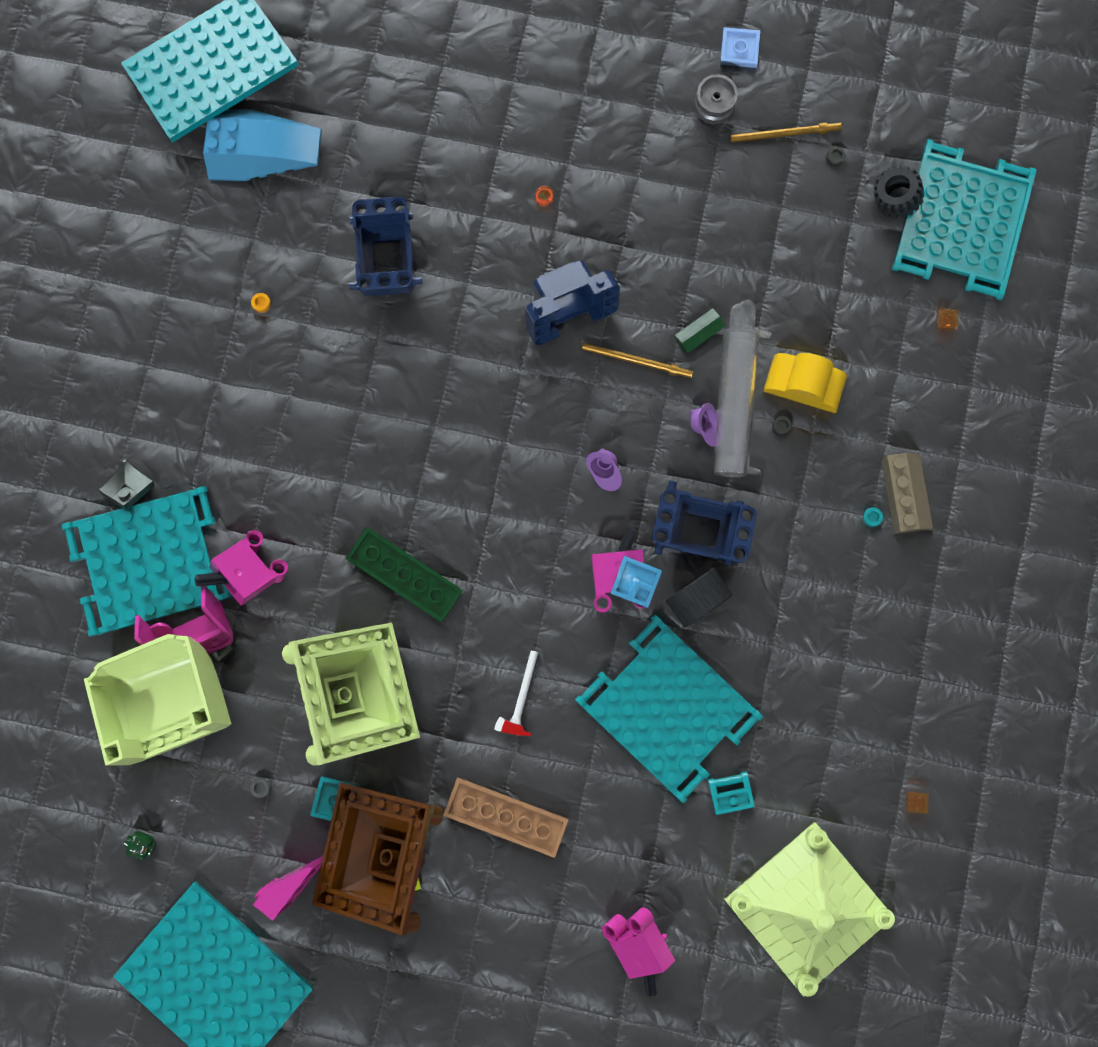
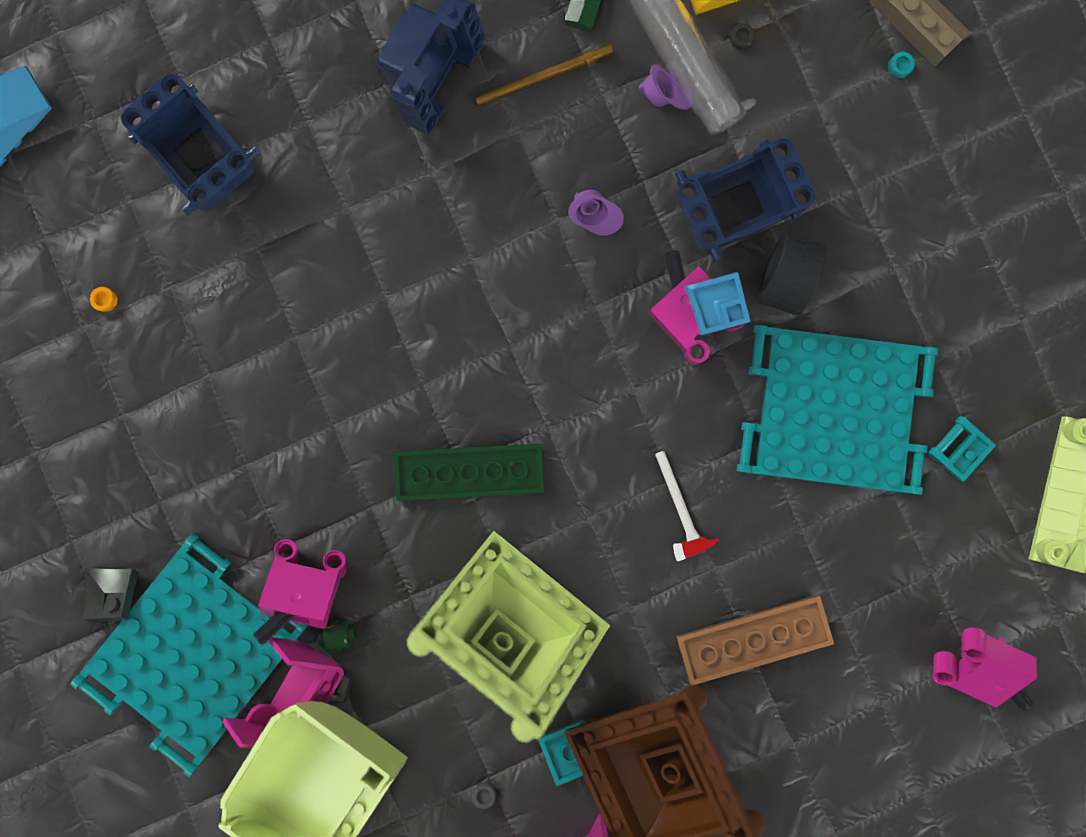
camera: 40 degrees left, 5 degrees up
(245, 616) = (337, 635): none -> dark green head

